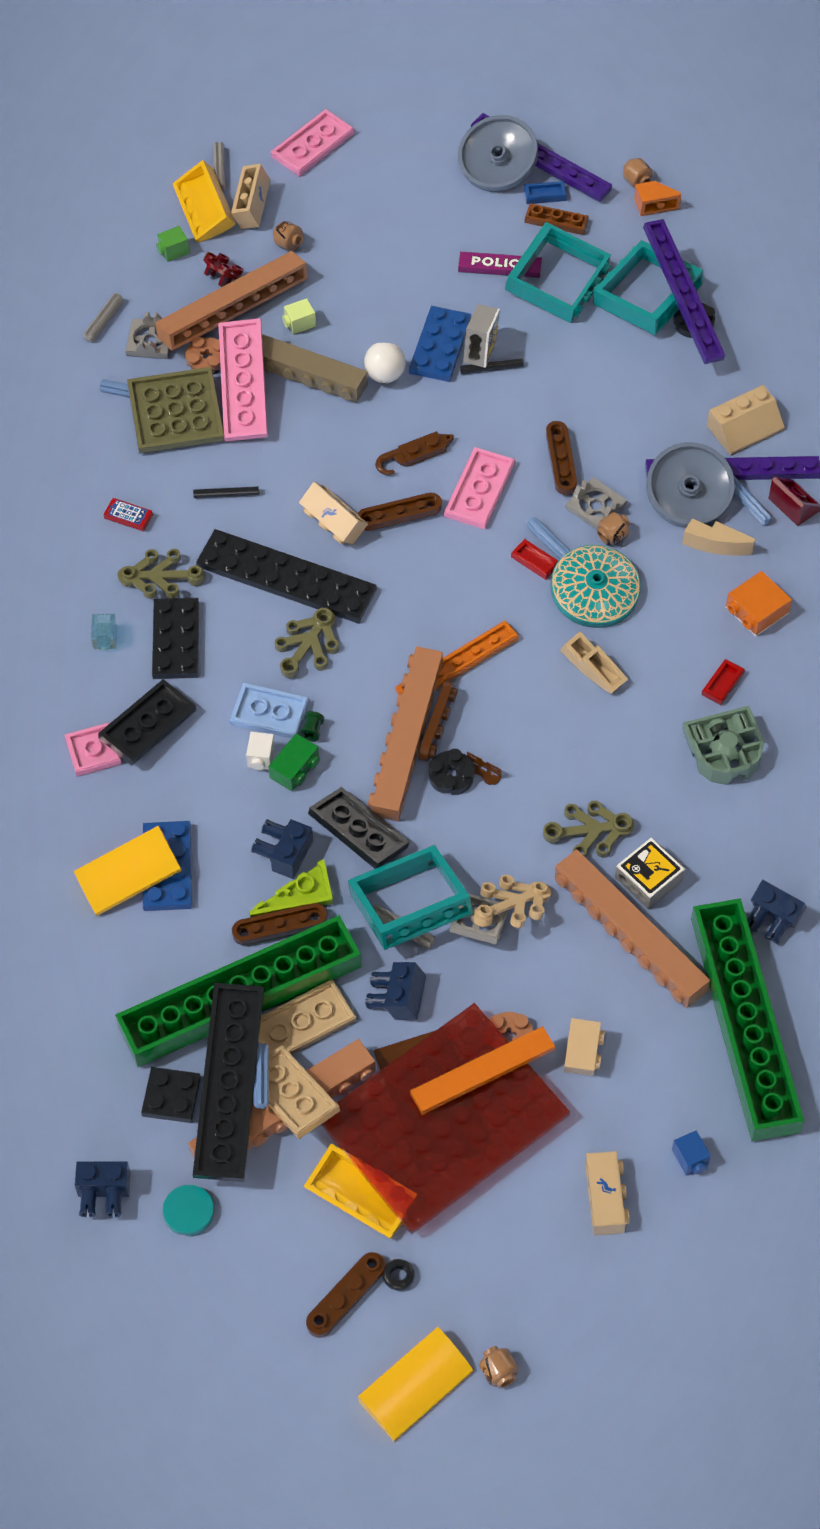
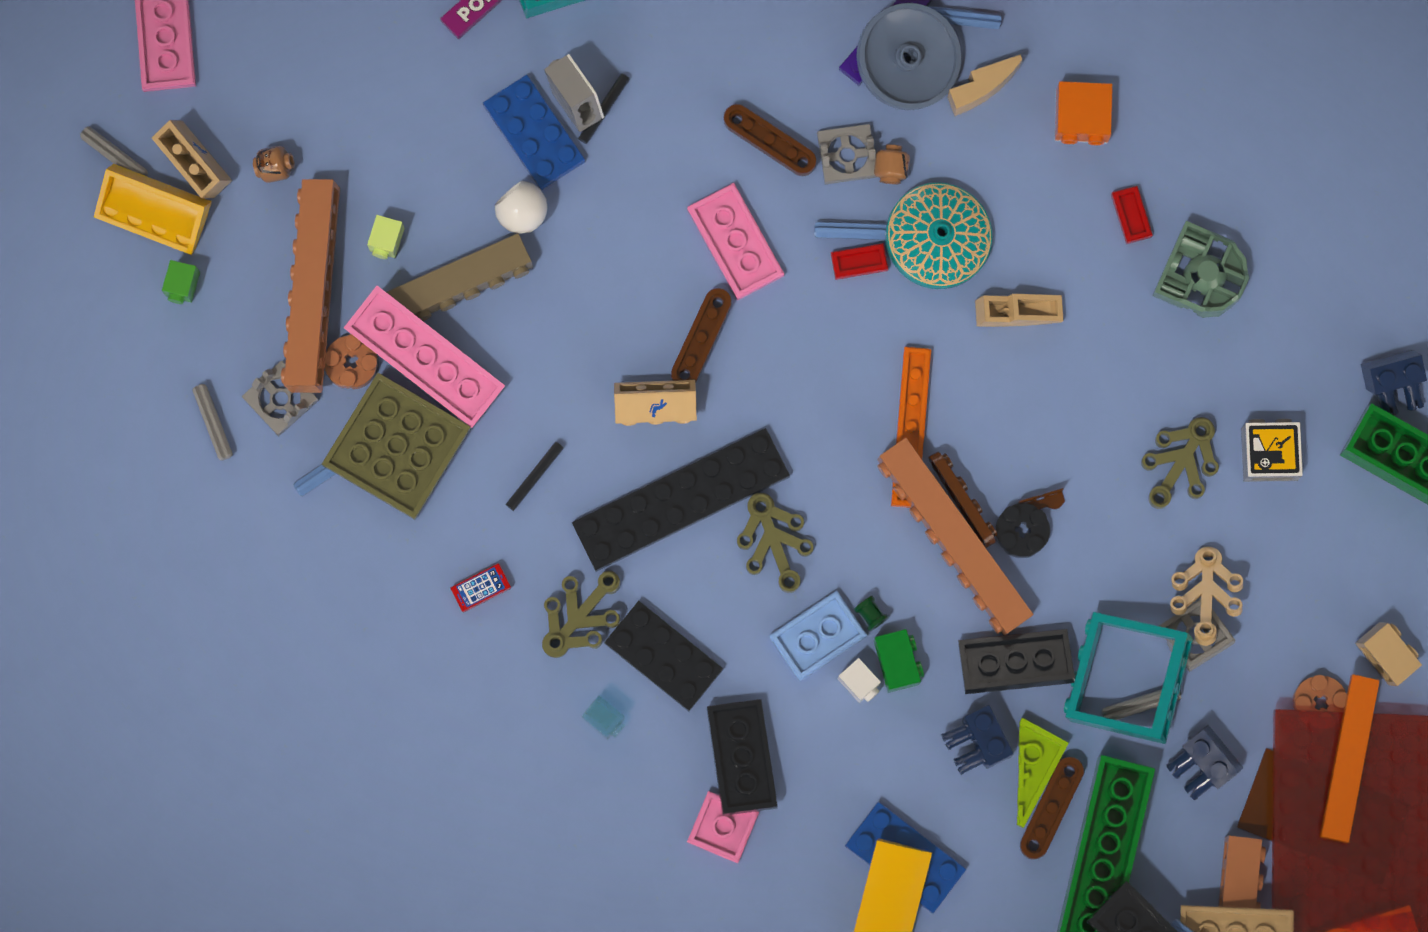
camera: 50 degrees left, 20 degrees up
(222, 265) = (258, 259): dark red plate -> none
(306, 1019) = (1164, 860): tan tile -> none
(415, 451) = (641, 264): reddish brown plate -> none
(631, 928) = (1309, 514): nougat brick -> none

